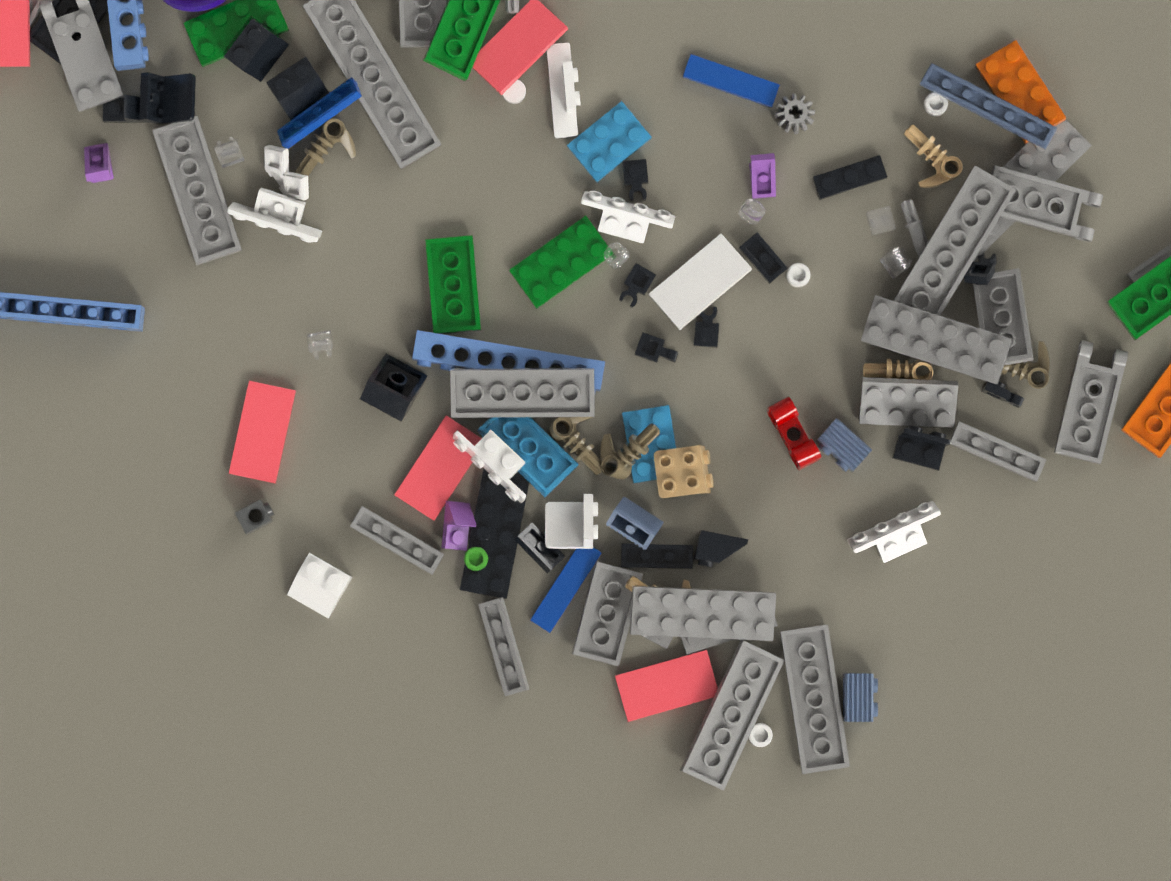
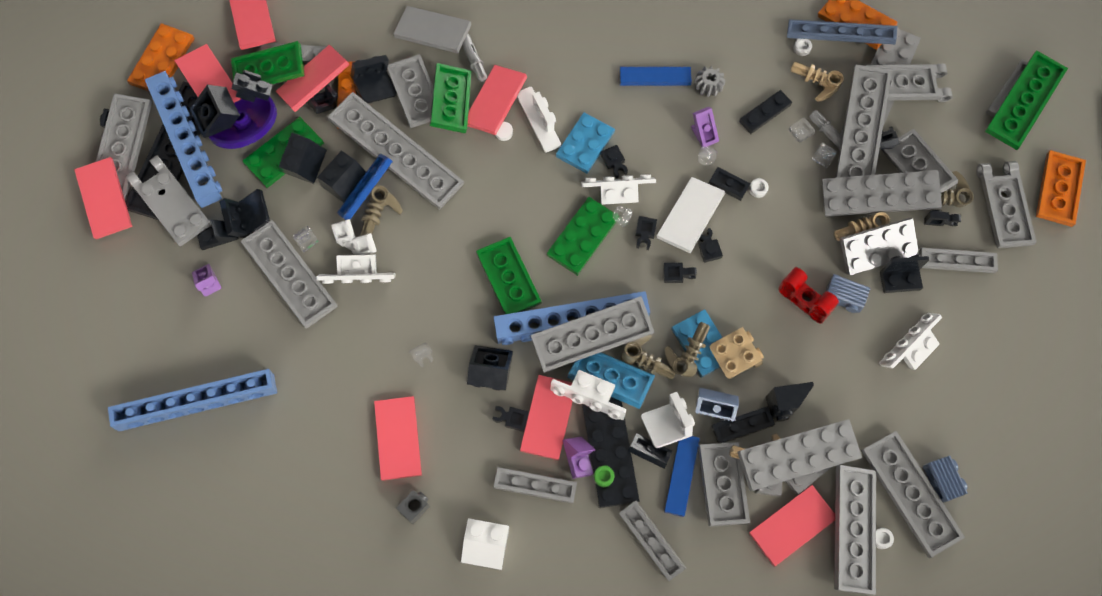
camera: 15 degrees left, 15 degrees down
(400, 456) = (515, 418): none -> black plate

